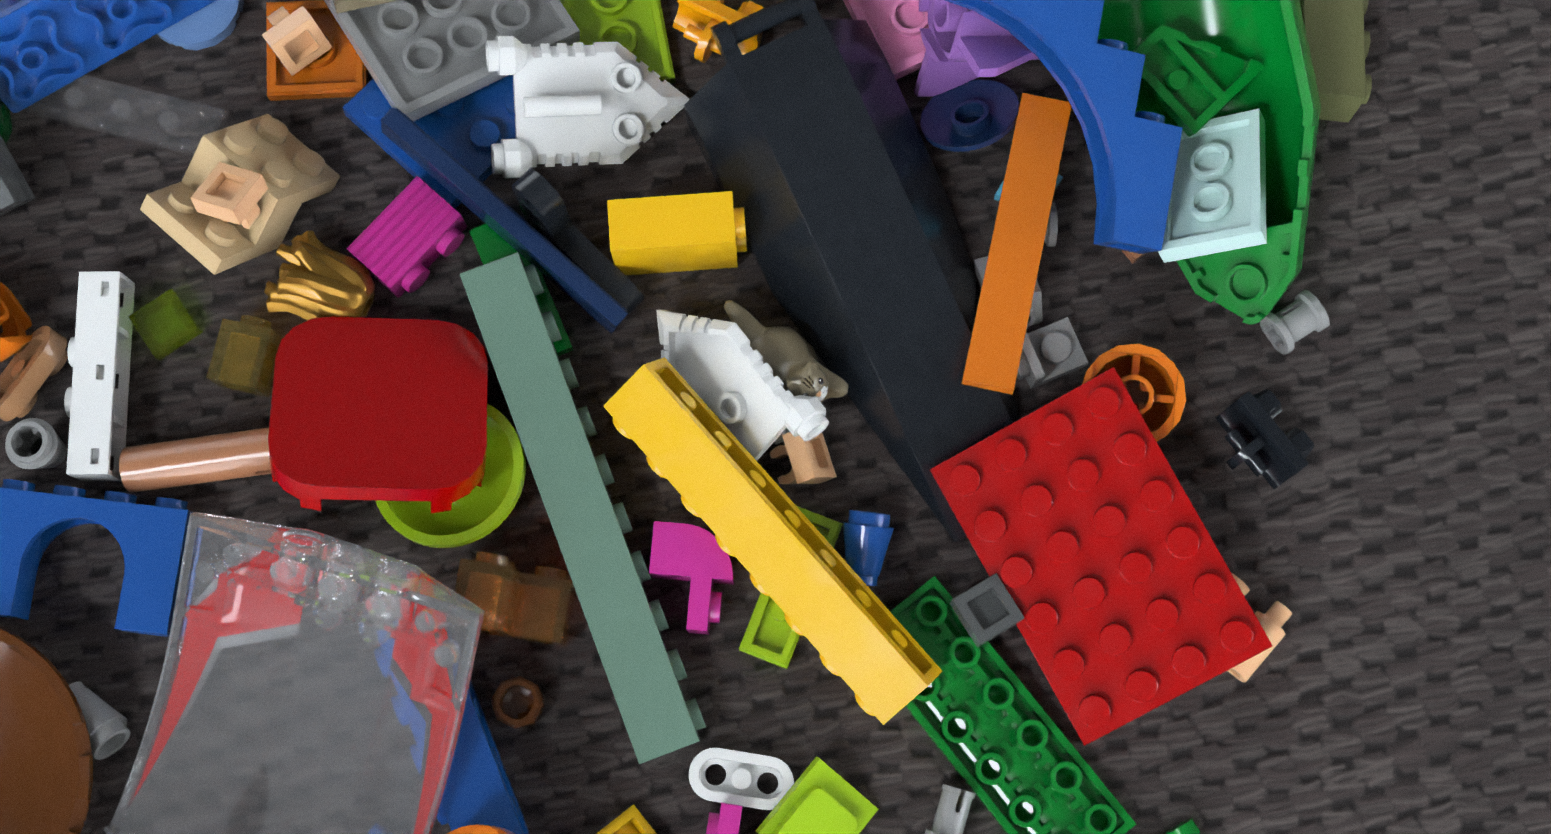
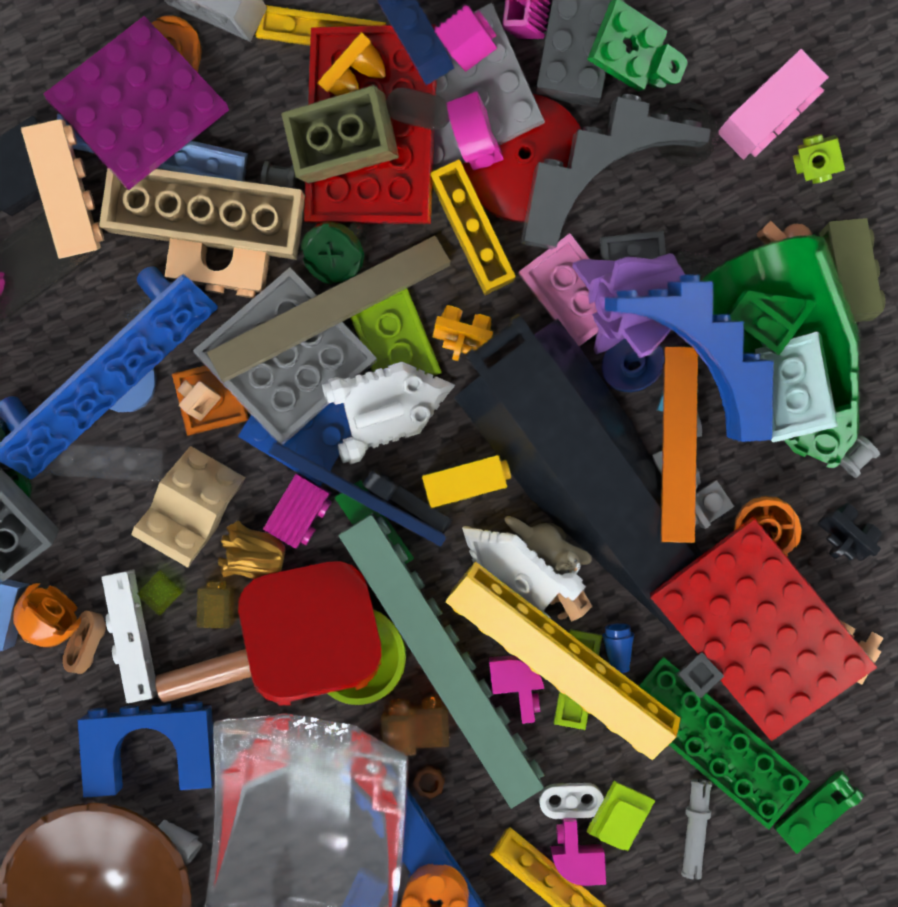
camera: 15 degrees left, 10 degrees up
(34, 445) = (96, 691): light grey cone -> none
(231, 194) = (187, 518): light nougat tile -> none

